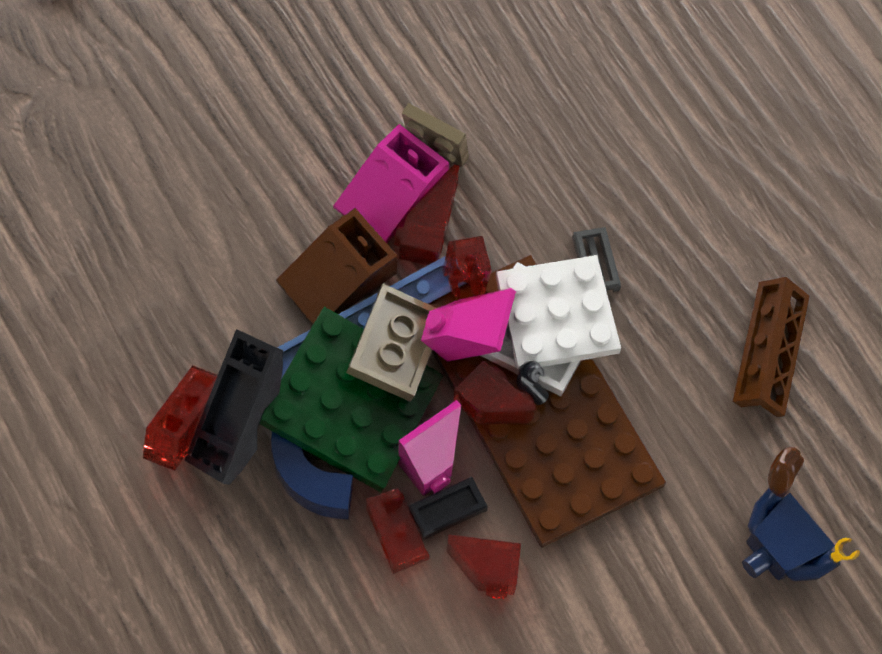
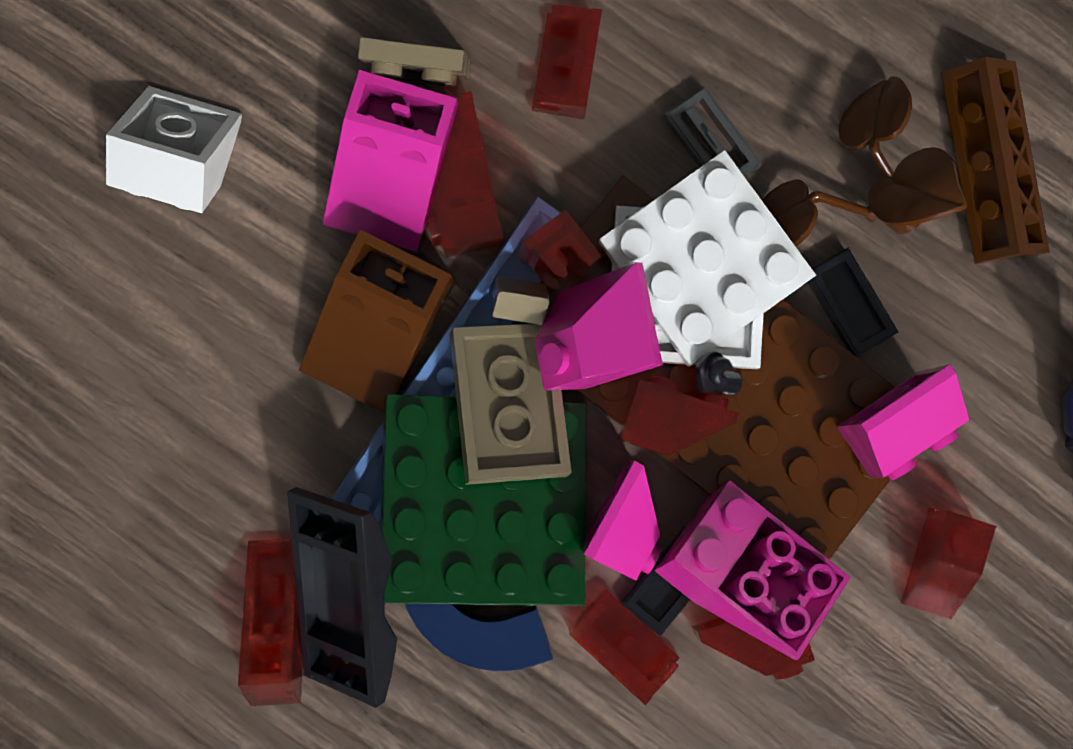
camera: 25 degrees left, 20 degrees up
(265, 127) = (171, 149): none -> white slope
(430, 290) = (520, 300): none -> dark tan slope
(502, 523) = (761, 584): none -> dark pink slope
(528, 179) = (566, 61): none -> clear red hinge
(633, 572) = (947, 562): none -> clear red slope
(640, 459) = (906, 422): none -> dark pink slope
(641, 391) = (851, 303): none -> black tile
(690, 322) = (917, 191): none -> reddish brown plant

